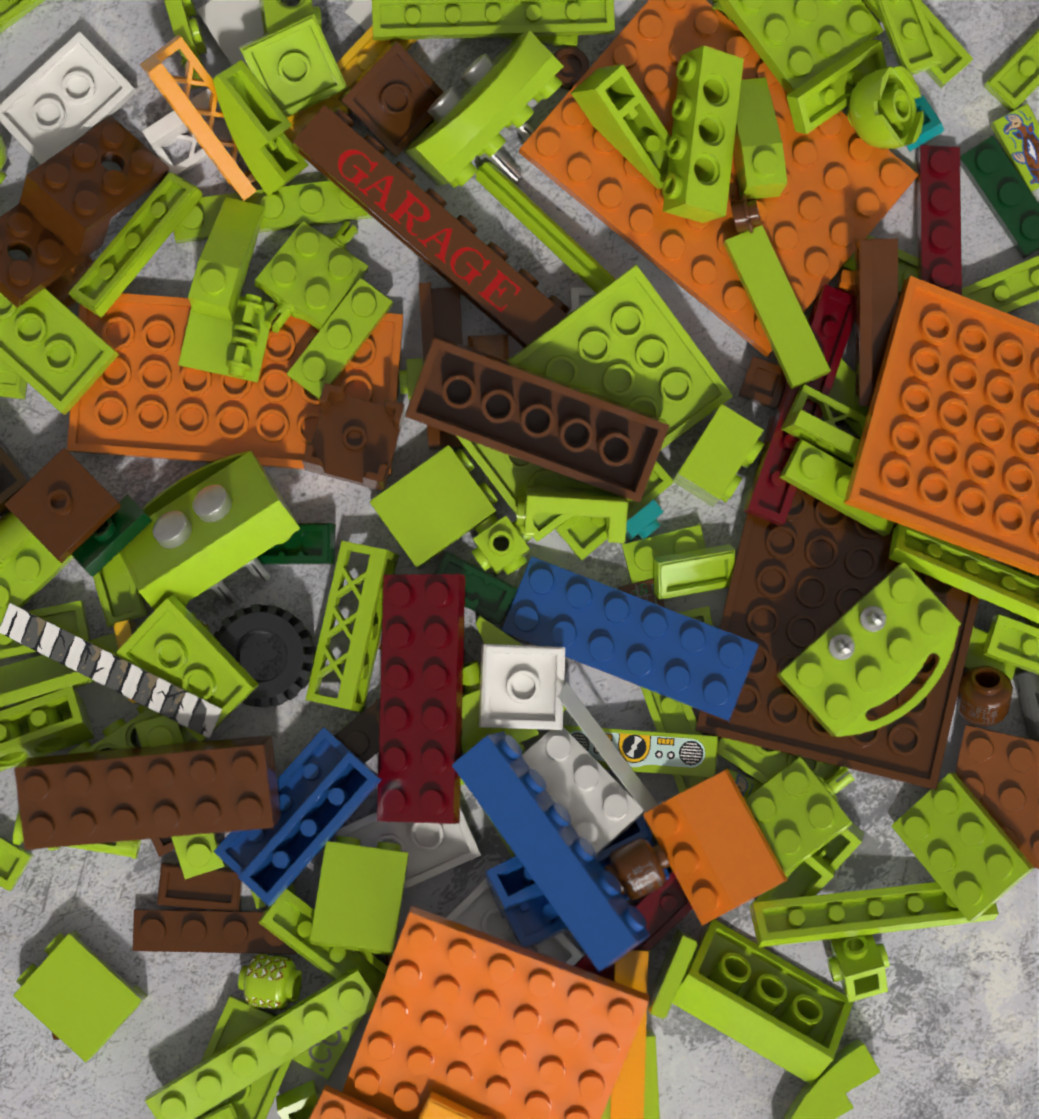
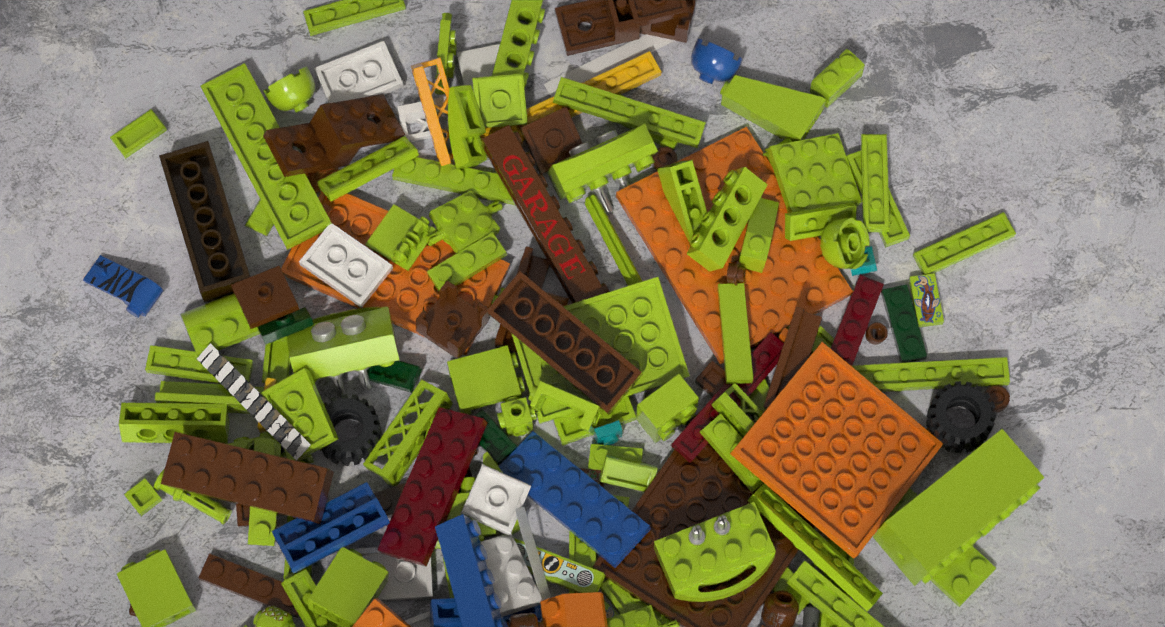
camera: 25 degrees right, 15 degrees down
(162, 407) = (346, 265): none -> white plate
(212, 890) = (254, 557): reddish brown tile -> none
(226, 259) = (416, 194): lime slope -> none
(980, 226) = (880, 333): none -> reddish brown hinge

